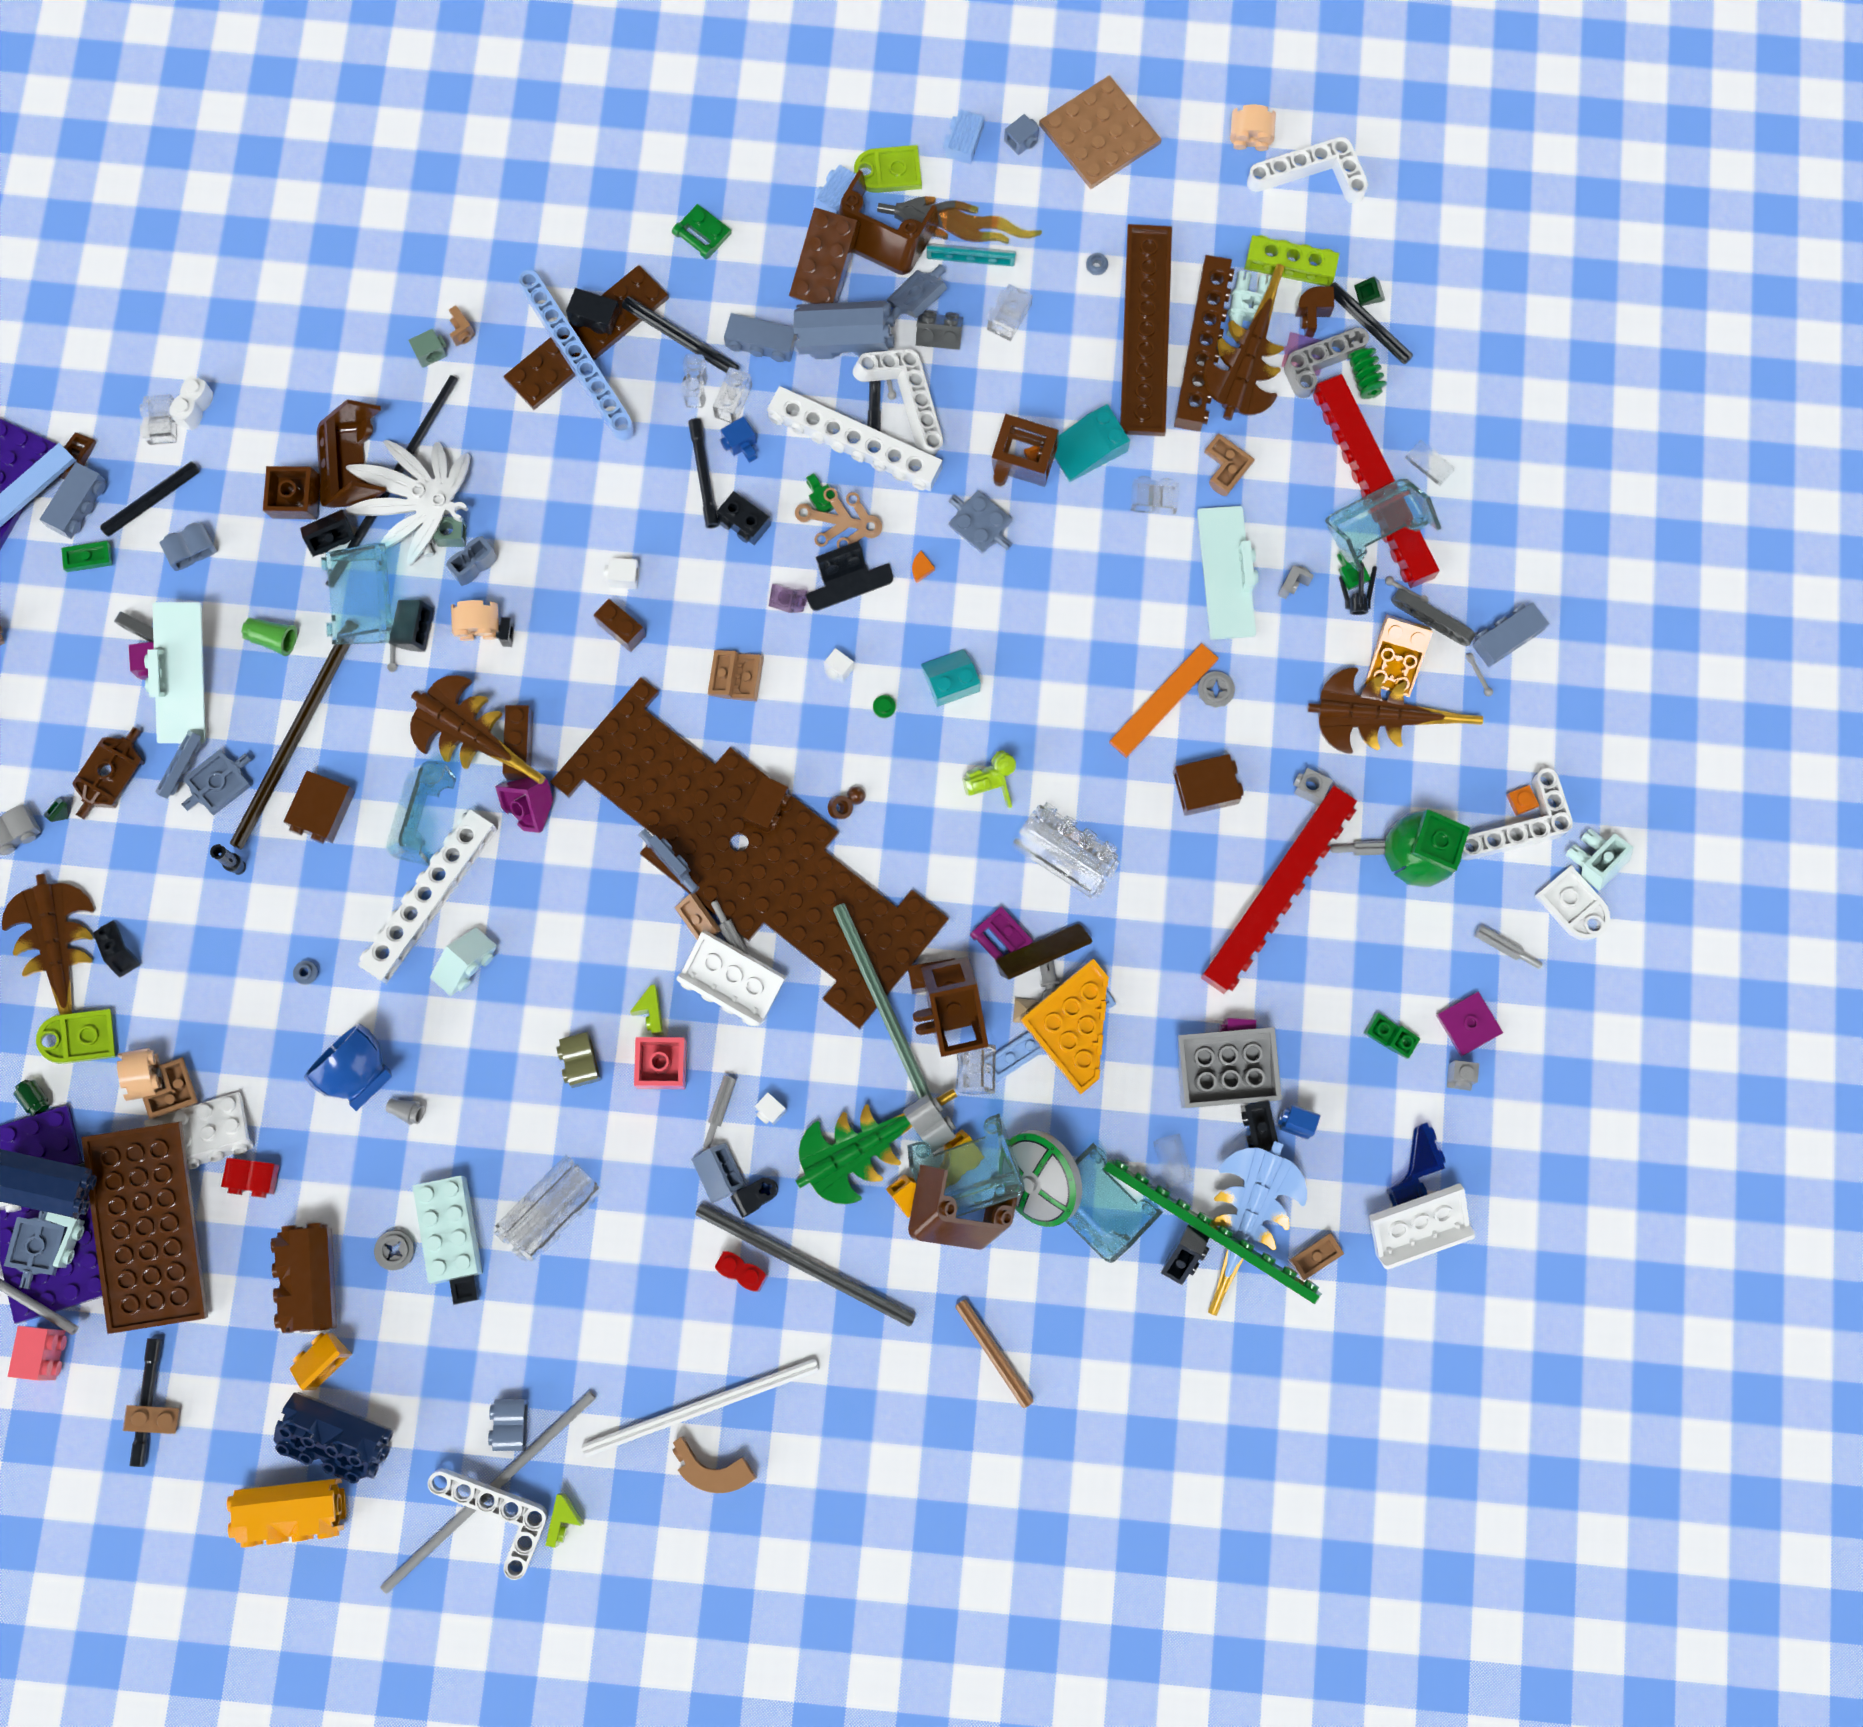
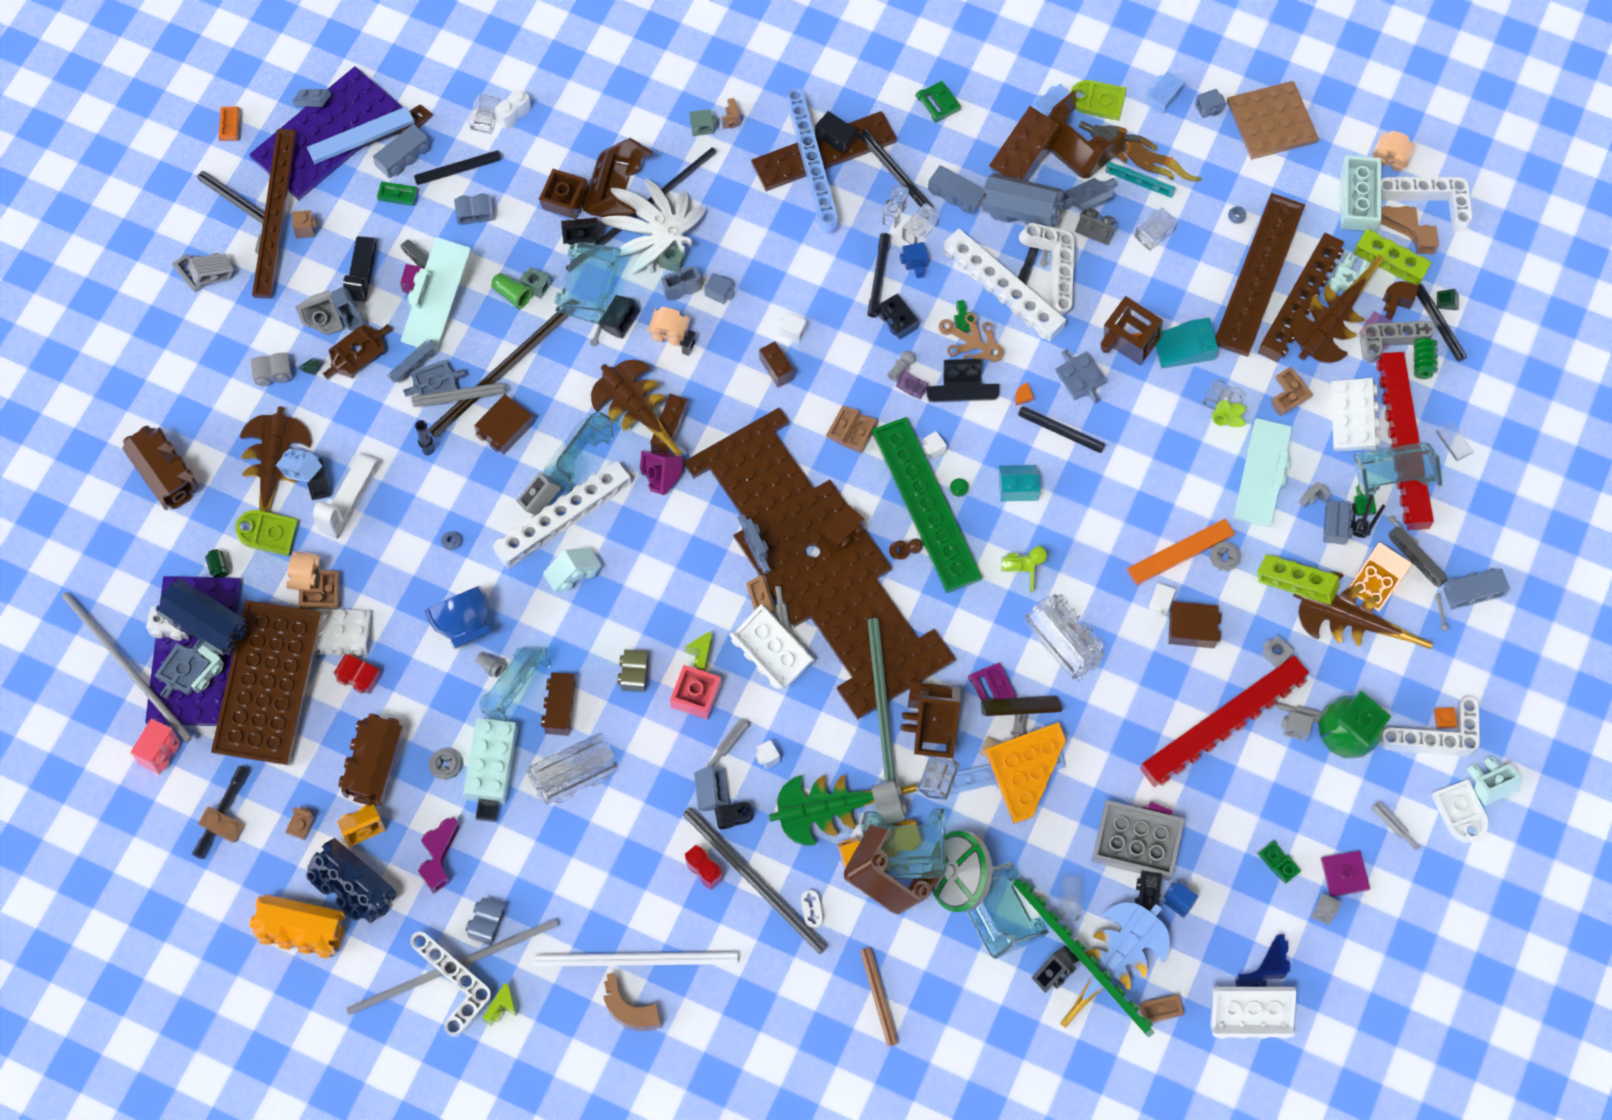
camera: 20 degrees right, 10 degrees down
(45, 740) = (320, 313): none -> light grey slope
(76, 725) = (347, 308): none -> sand blue brick
(78, 687) = (361, 268): none -> black beam
(87, 943) = (299, 465): none -> light blue brick
(162, 960) = (334, 517): none -> white beam
(247, 1382) = (300, 823): none -> medium nougat bracket
(250, 789) = (458, 394): none -> light grey axle
(304, 618) = (540, 287): none -> sand green brick
(391, 882) = (538, 494): none -> light grey brick
(420, 1354) = (437, 845): none -> magenta arch
(440, 1124) = (513, 680): none -> clear light blue windscreen
(504, 1131) = (558, 703): none -> reddish brown brick
(519, 552) = (719, 288): none -> sand blue brick
(771, 567) = (906, 359): none -> light grey pin
(853, 741) = (926, 505): none -> green plate
(877, 1280) = (816, 909): none -> white beam
(979, 596) = (1061, 429): none -> black axle
(1161, 767) = (1161, 600): none -> white brick
(1166, 515) = (1229, 414): none -> lime plate
(1231, 192) = (1360, 193): none -> light aqua brick
(1293, 211) = (1405, 221): none -> medium nougat arch
(1309, 468) = (1355, 414): none -> white bracket
(1330, 606) = (1336, 522): none -> sand blue brick
(1343, 700) = (1289, 579): none -> lime brick
(1362, 867) = (1297, 725): none -> light grey brick

